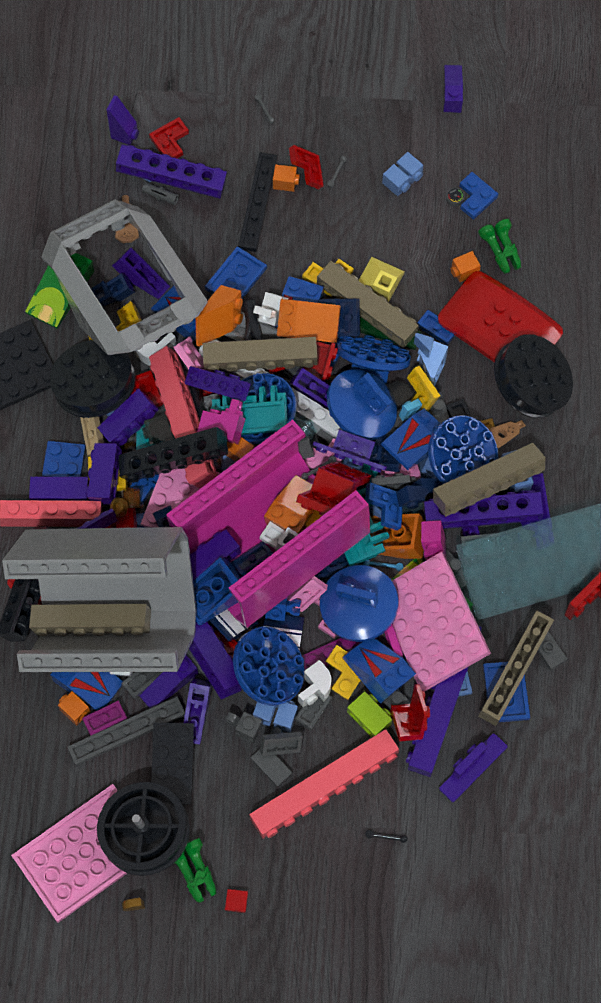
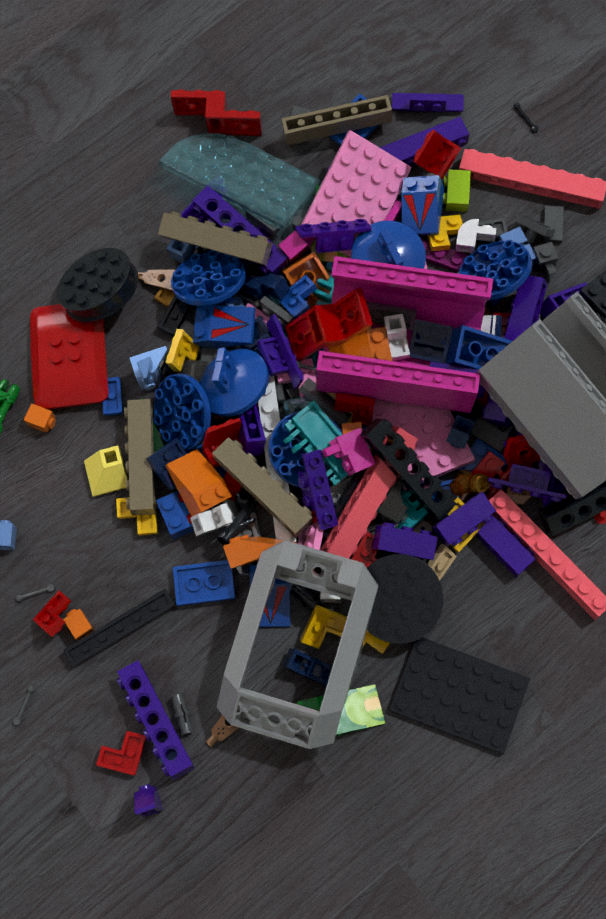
camera: 125 degrees left, 5 degrees up
(63, 459) = (477, 569): blue plate -> none
(140, 273) = (269, 659): dark purple slope -> none
(410, 408) = (202, 352): medium azure plate -> none
(413, 571) = (333, 236): none -> dark purple bracket

